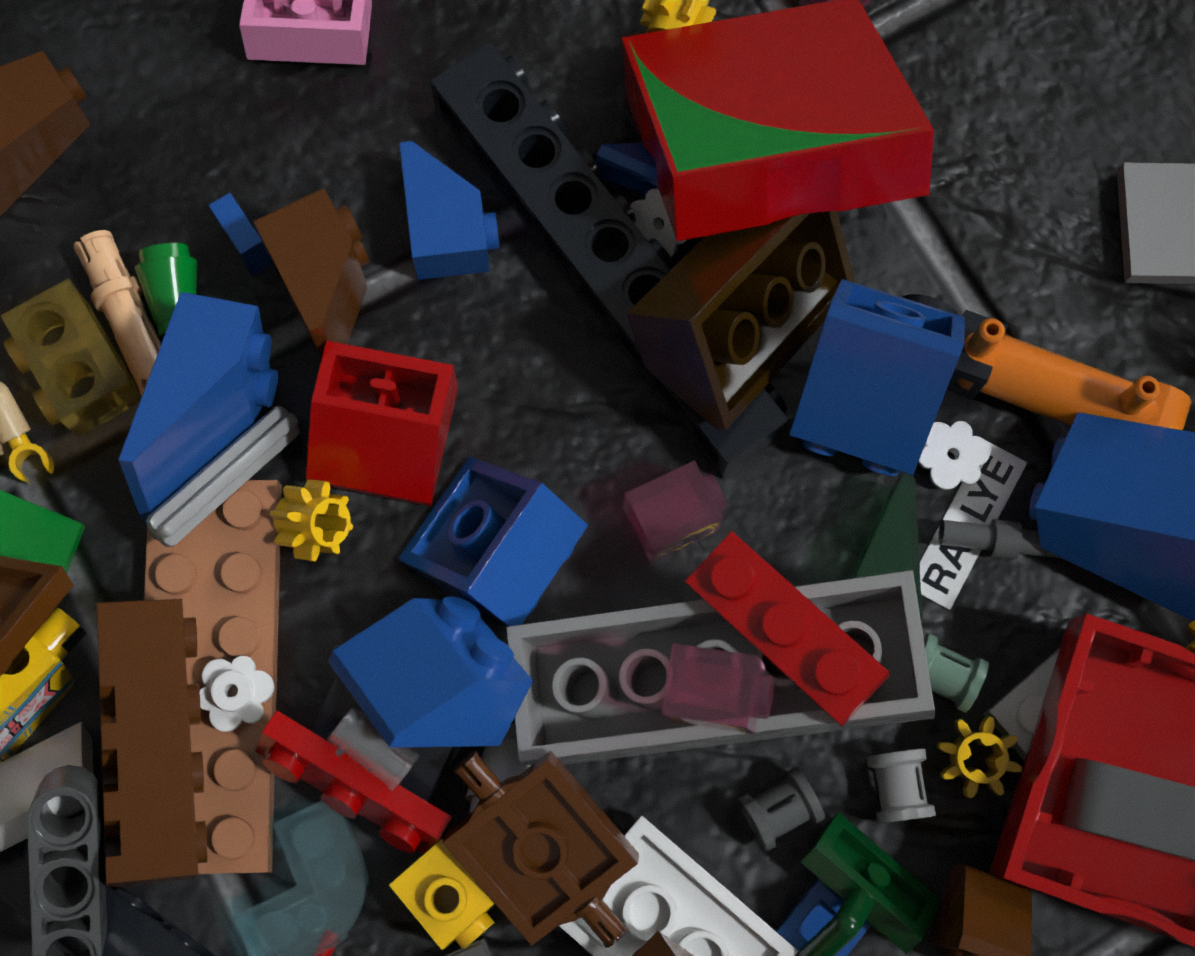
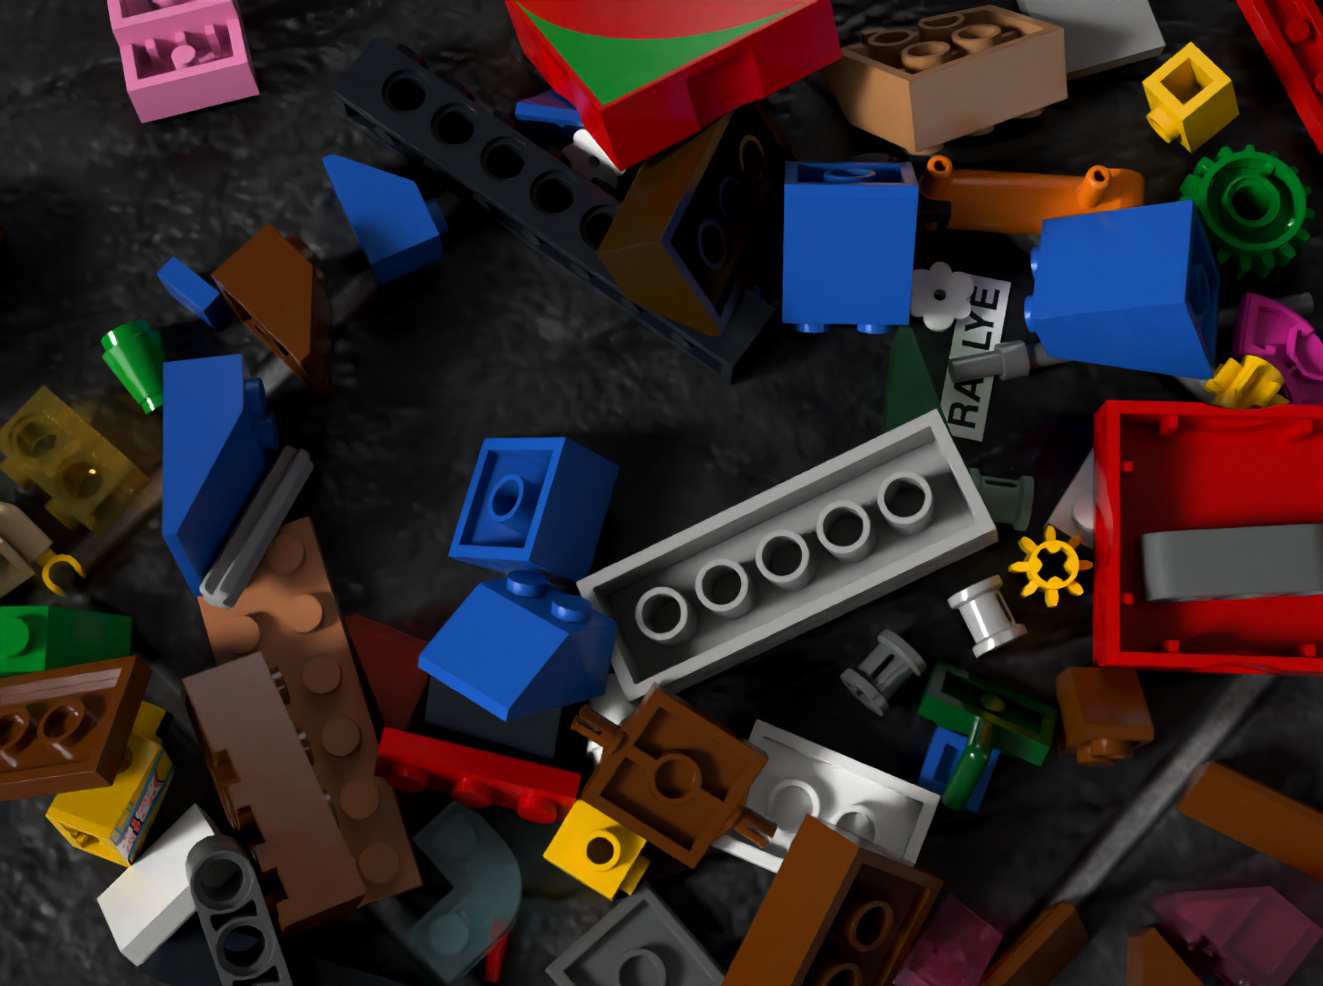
camera: 15 degrees left, 0 degrees up
(121, 303) = (100, 396): light nougat pin -> none
(253, 690) = (336, 746): white plant -> none
(303, 656) = (392, 671): none -> clear red slope
(311, 520) = (354, 543): yellow gear -> none
(365, 745) = (487, 732): clear pin -> none
(380, 422) = (390, 431): red slope -> none
(675, 510) = (696, 427): clear pink brick -> none
(717, 689) = (792, 573): clear pink brick -> none
(787, 628) = (838, 497): red plate -> none
(1030, 244) = (949, 76): none -> medium nougat wedge

